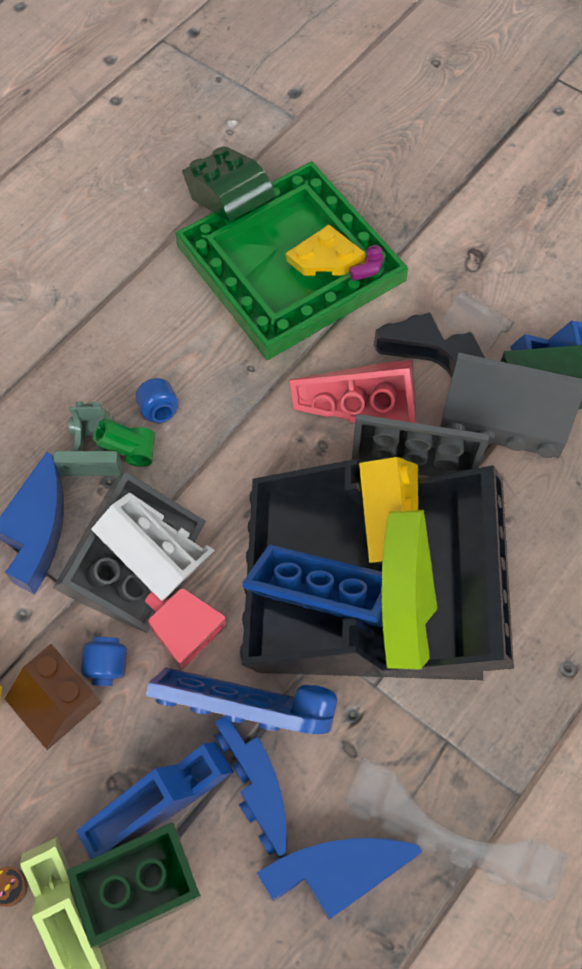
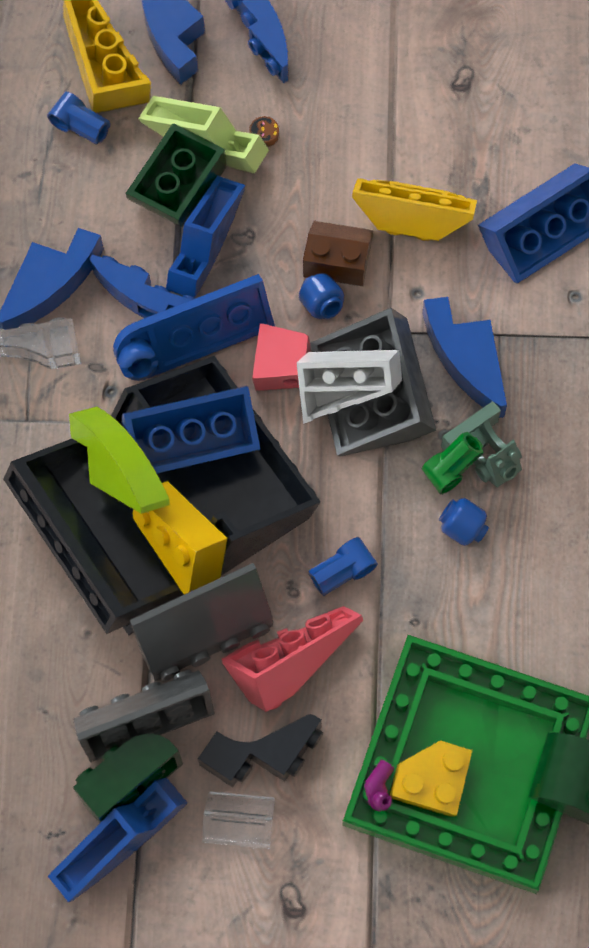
camera: 145 degrees right, 5 degrees up
(264, 429) = (348, 563): none -> blue piece

